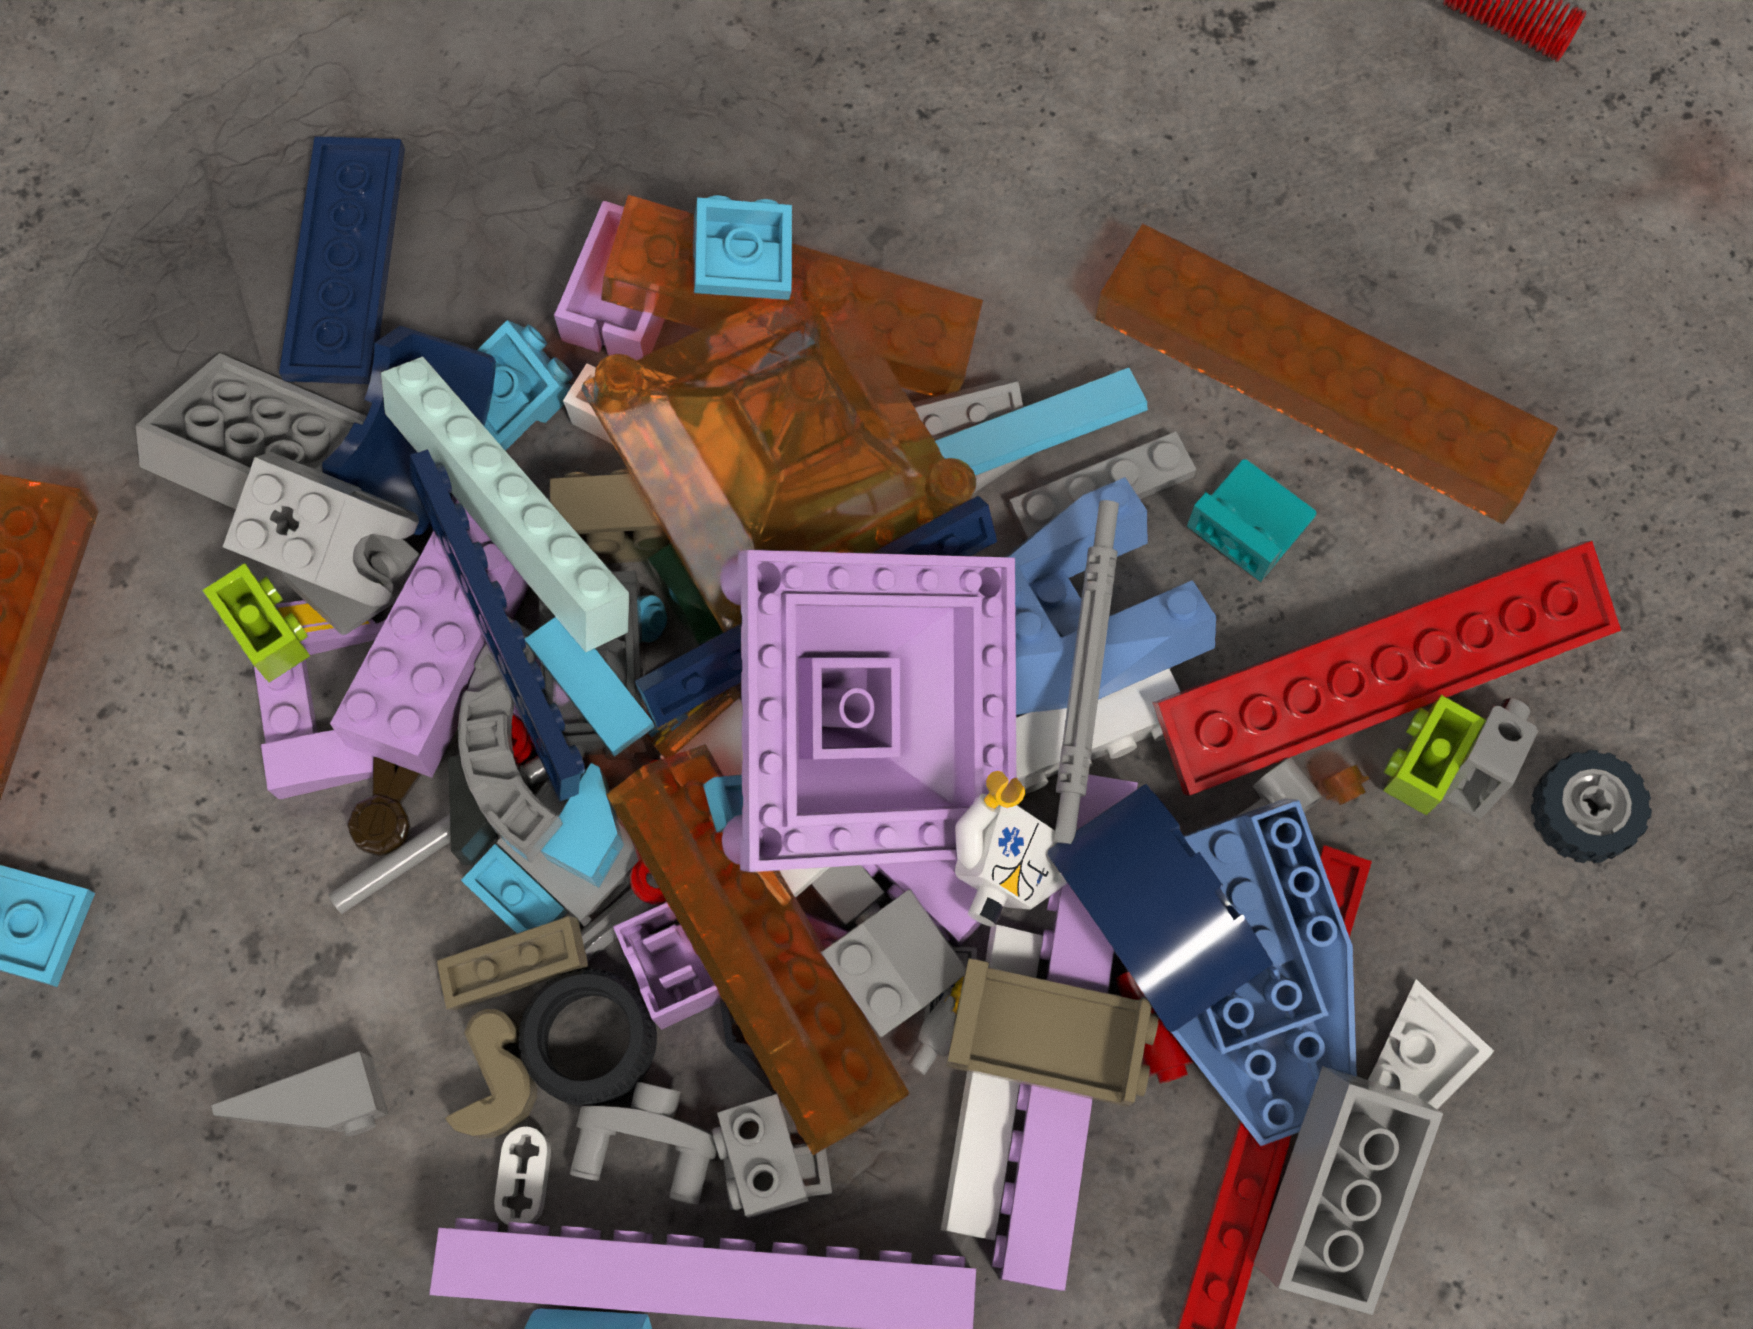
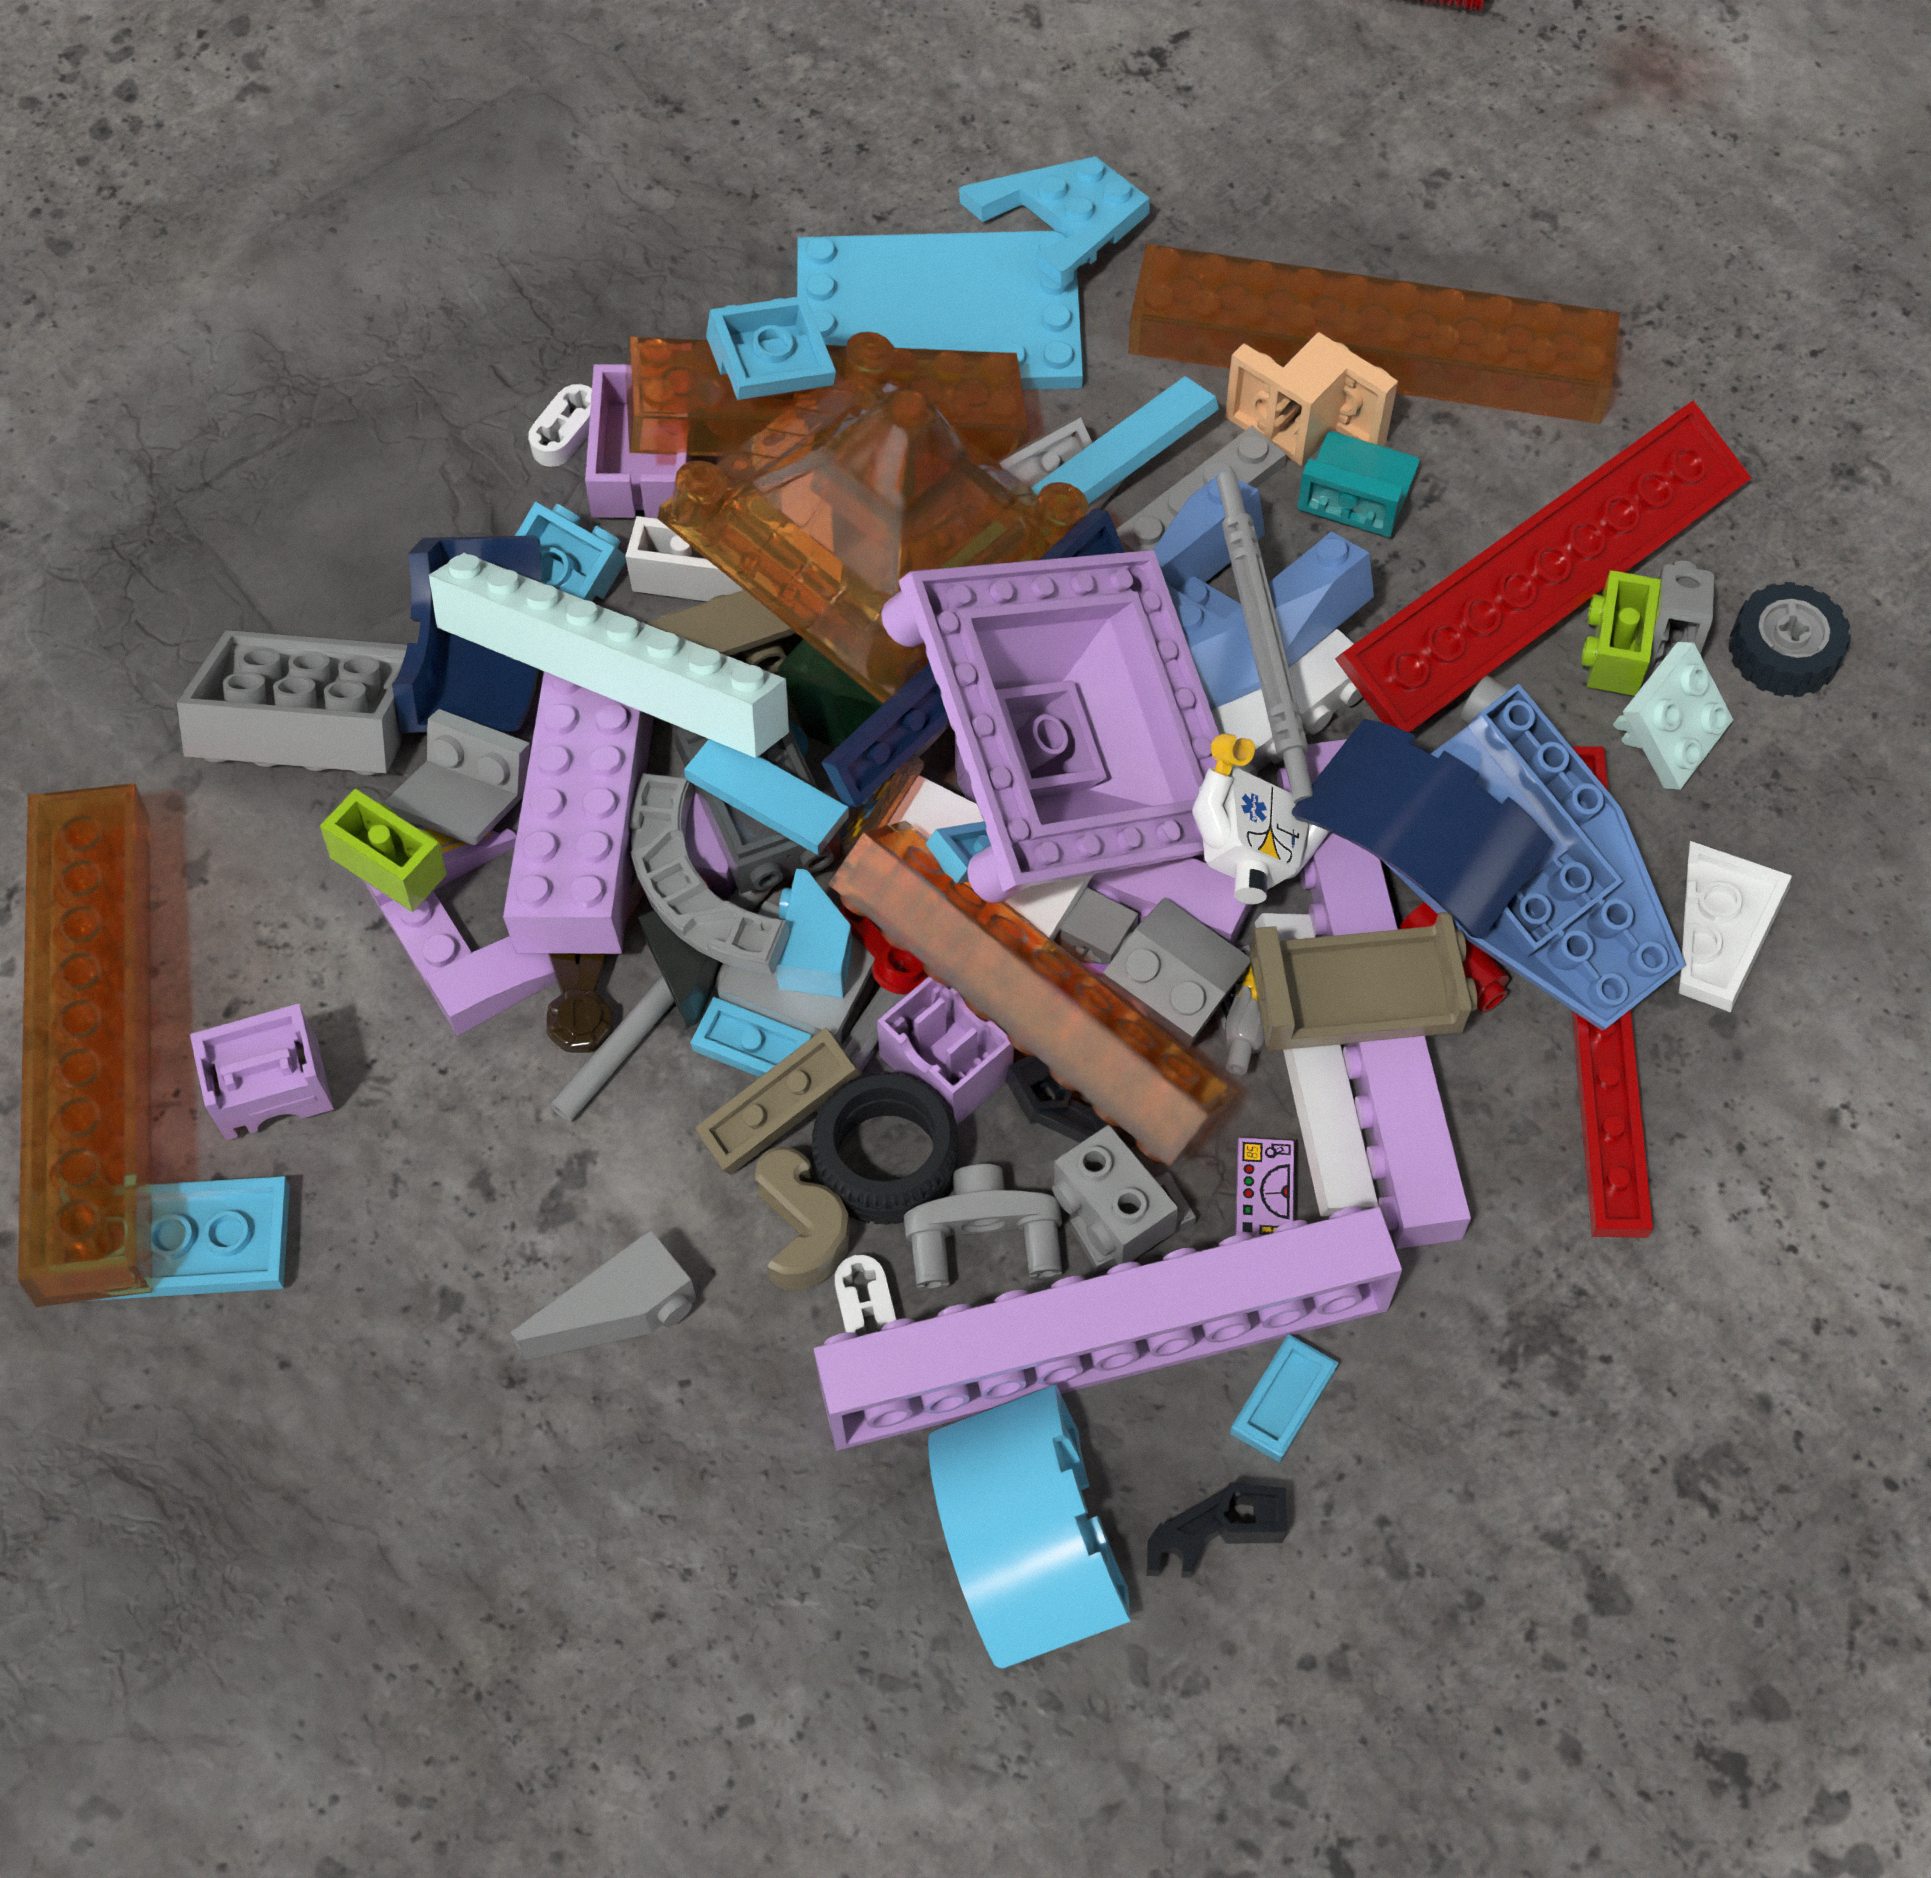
camera: 20 degrees left, 10 degrees down
(95, 790) = (254, 1070): none -> lavender piece
(331, 528) = (433, 743): light grey brick -> none
(342, 260) = (328, 506): dark blue plate -> none
(502, 637) = (648, 767): dark blue plate -> none
(563, 238) = (558, 421): none -> white beam
(901, 1190) = (1263, 1185): none -> lavender tile
(946, 220) = (948, 296): none -> medium azure plate
(1104, 153) = (1074, 198): none -> medium azure wing
(1235, 425) = (1309, 396): none -> light nougat bracket
(1345, 785) = (1550, 689): clear orange plate -> none
(1347, 1191) = (1707, 1029): light grey brick -> none
(1450, 856) = (1676, 716): none -> light aqua plate

